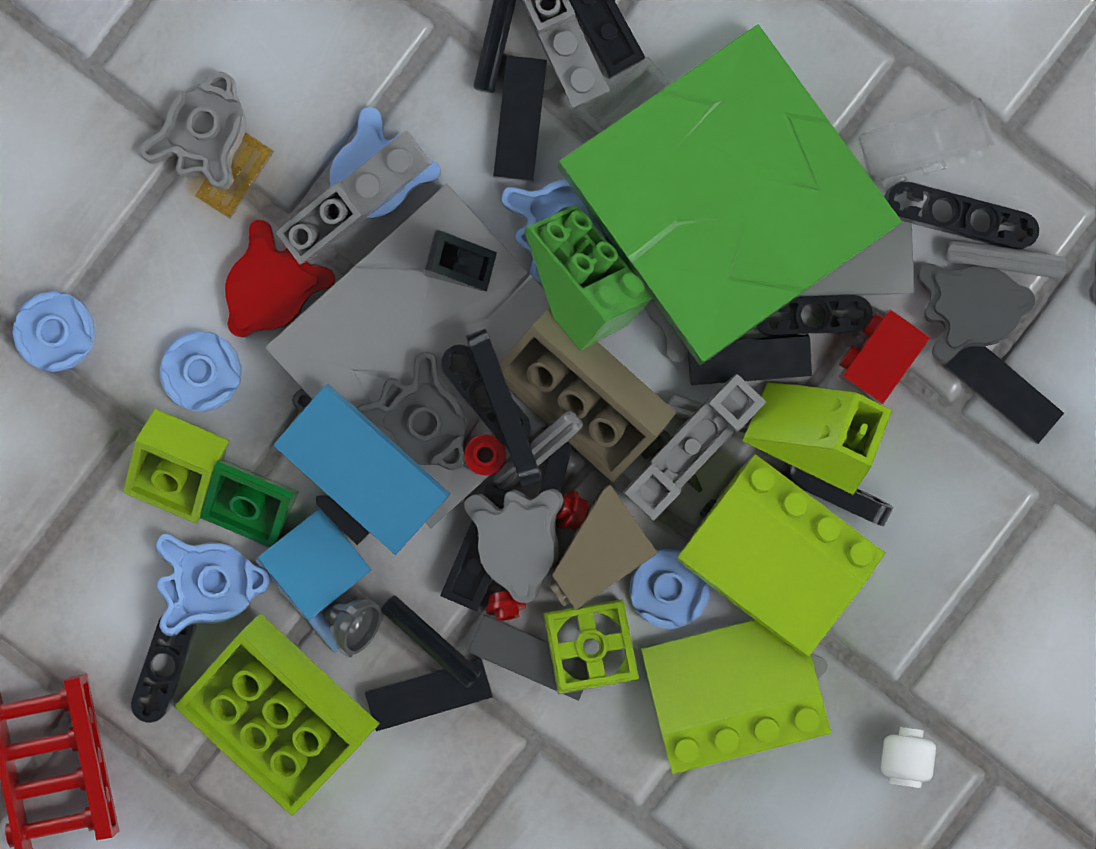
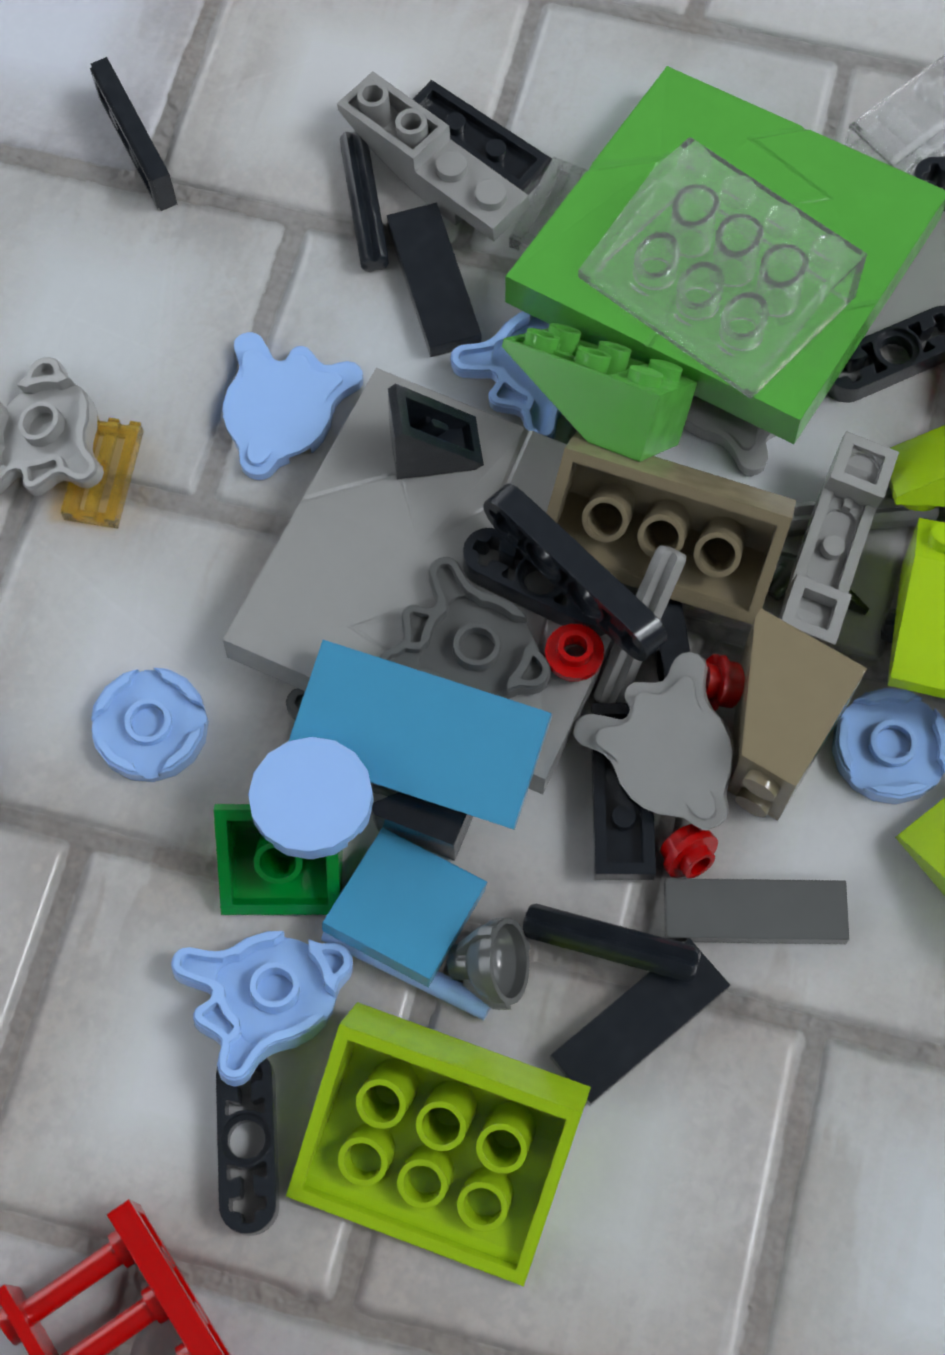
camera: 25 degrees left, 20 degrees down
(173, 465) = (156, 854): lime slope -> none
(269, 285) = (198, 582): red tile -> none
(276, 486) = (311, 797): none -> light blue tile
(354, 198) = (269, 426): light grey slope -> none
(560, 651) = (791, 879): lime piece -> none
(702, 227) = (724, 267): none -> clear slope
(756, 360) = (874, 414): black tile -> none

